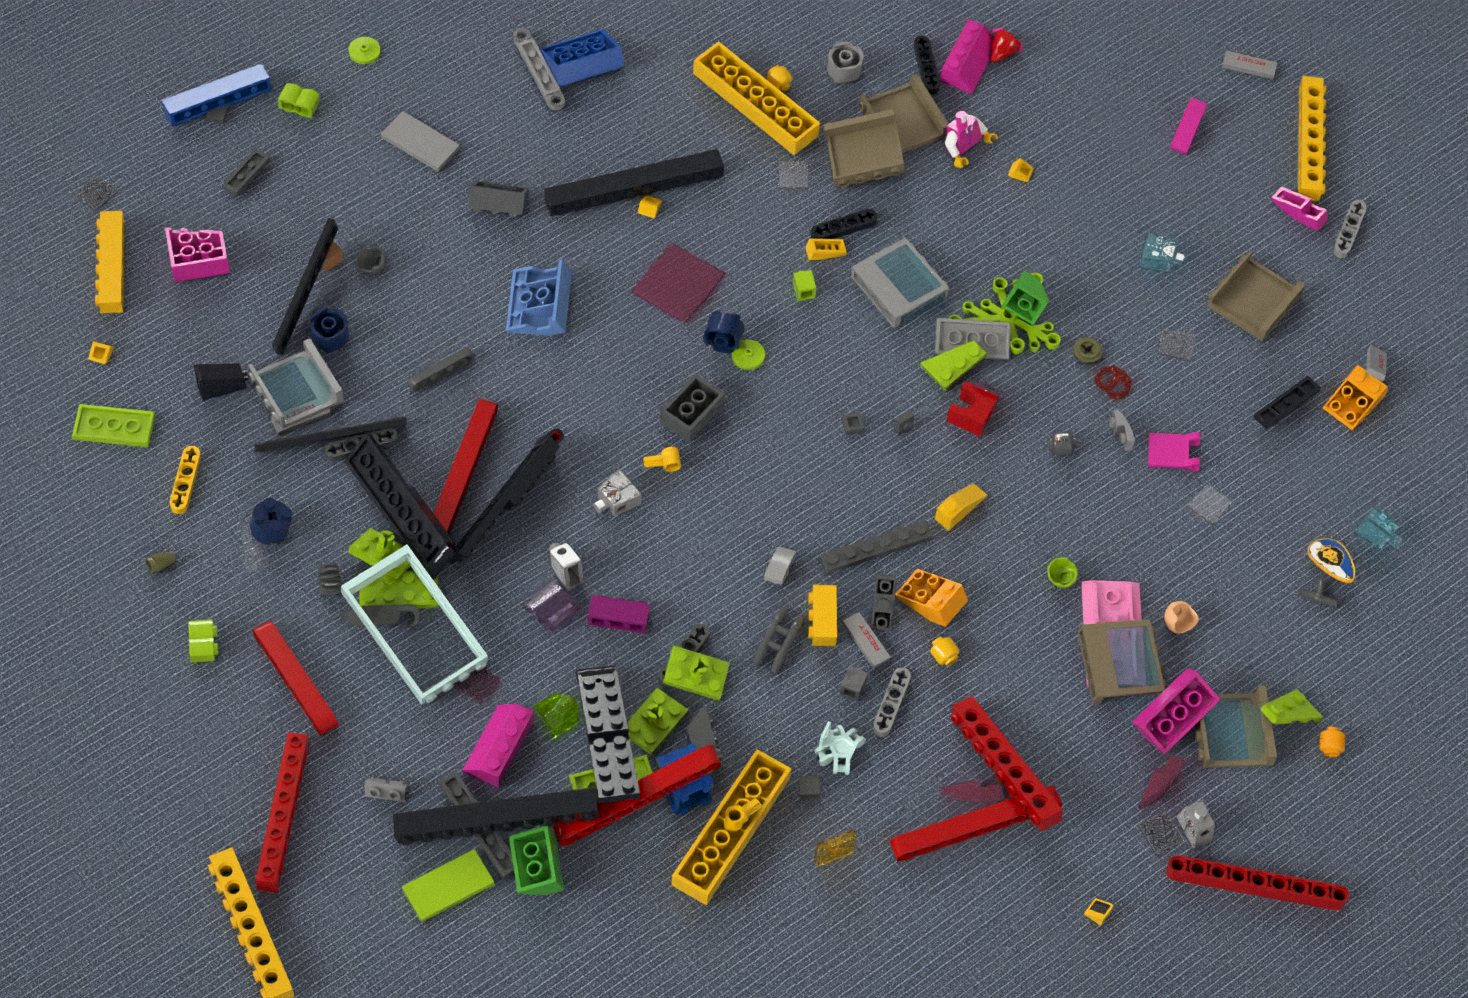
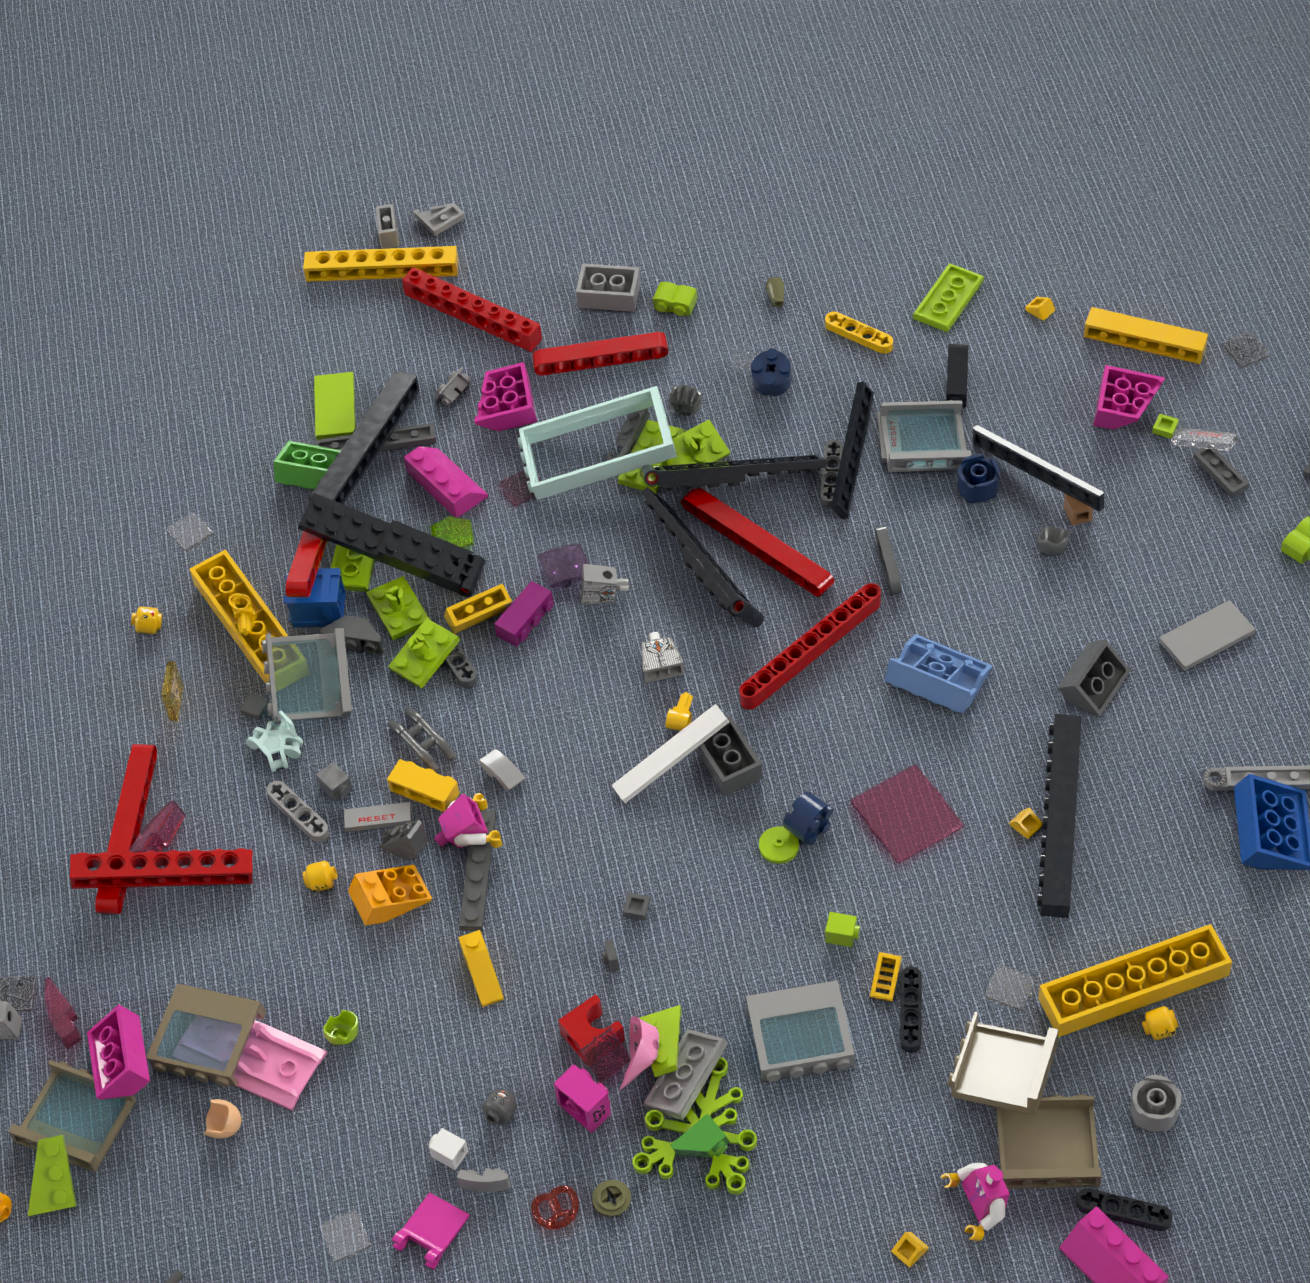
camera: 125 degrees right, 5 degrees down
(165, 901) = (440, 217): none -> light grey wing
(201, 938) = (387, 226): none -> light grey brick
(212, 221) = (1165, 426): none -> lime plate
(212, 698) = (608, 287): none -> light grey brick
(219, 187) = (1204, 439): none -> clear tile
(385, 725) = (506, 399): none -> dark pink wedge
(561, 399) = (810, 646): none -> red beam
(634, 647) = (477, 608): none -> yellow brick
(649, 942) = (189, 531): none -> clear piece
(714, 441) = (670, 753): none -> white tile
(767, 918) = (147, 620): none -> yellow head
(769, 738) = (307, 676): none -> clear light blue panel
(846, 565) = (464, 824): none -> dark pink torso
(975, 364) = (646, 1050): none -> bright pink piece
(1030, 387) = (583, 1098): none -> dark pink brick
(1112, 462) = (448, 1148): none -> white brick

